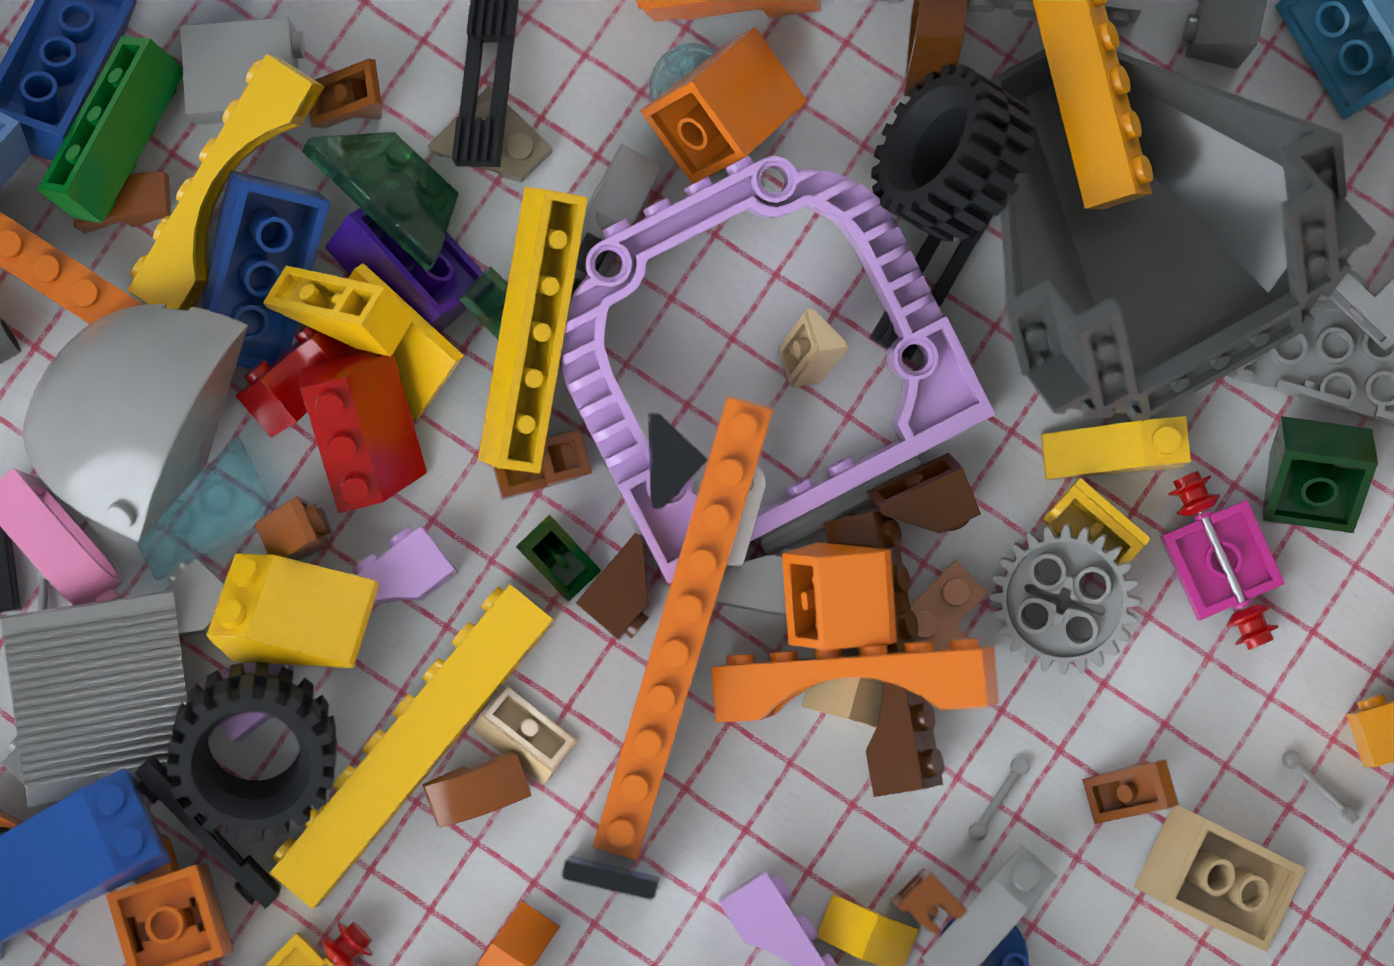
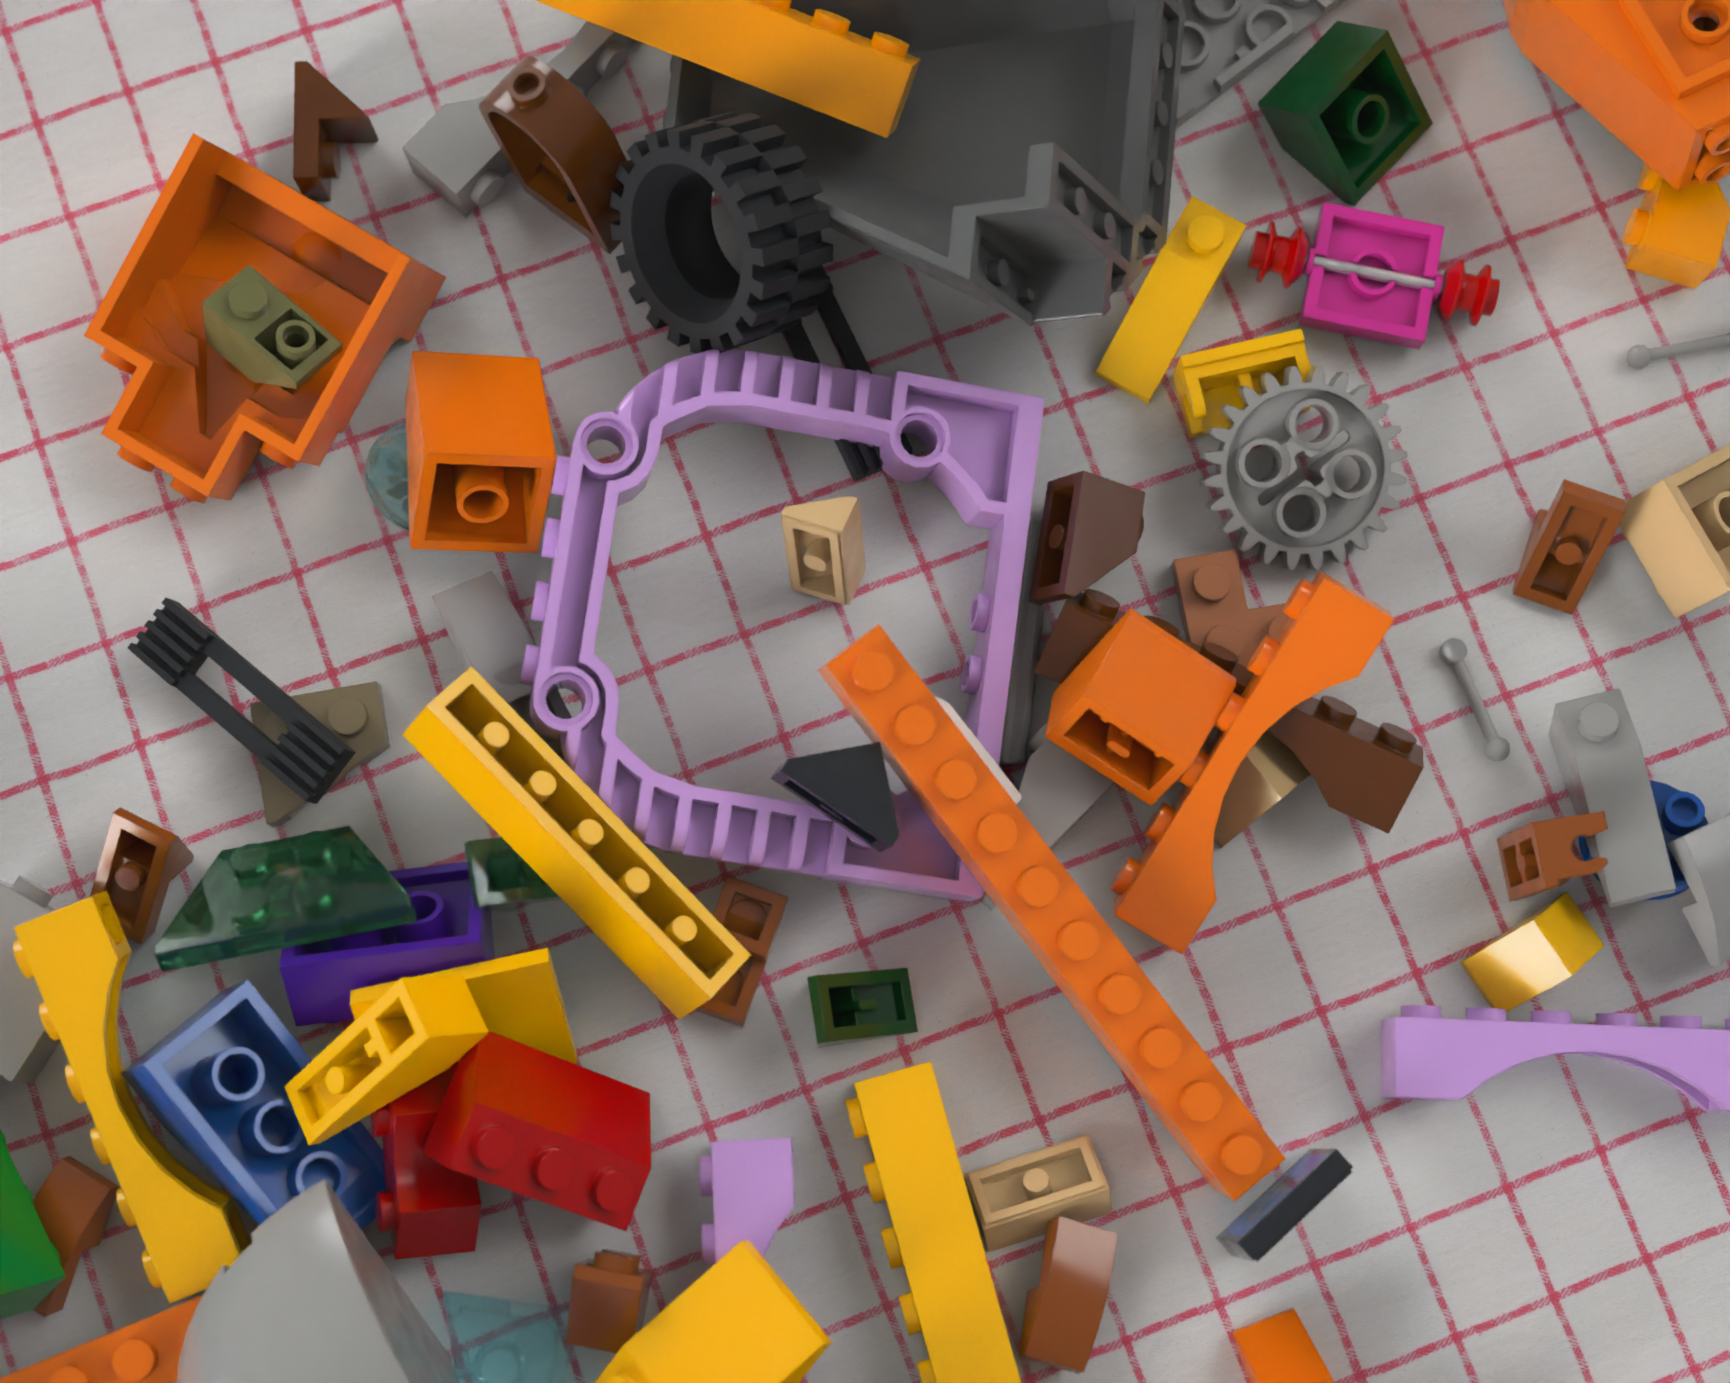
camera: 60 degrees left, 5 degrees down
(620, 592) = (951, 961): reddish brown slope -> none

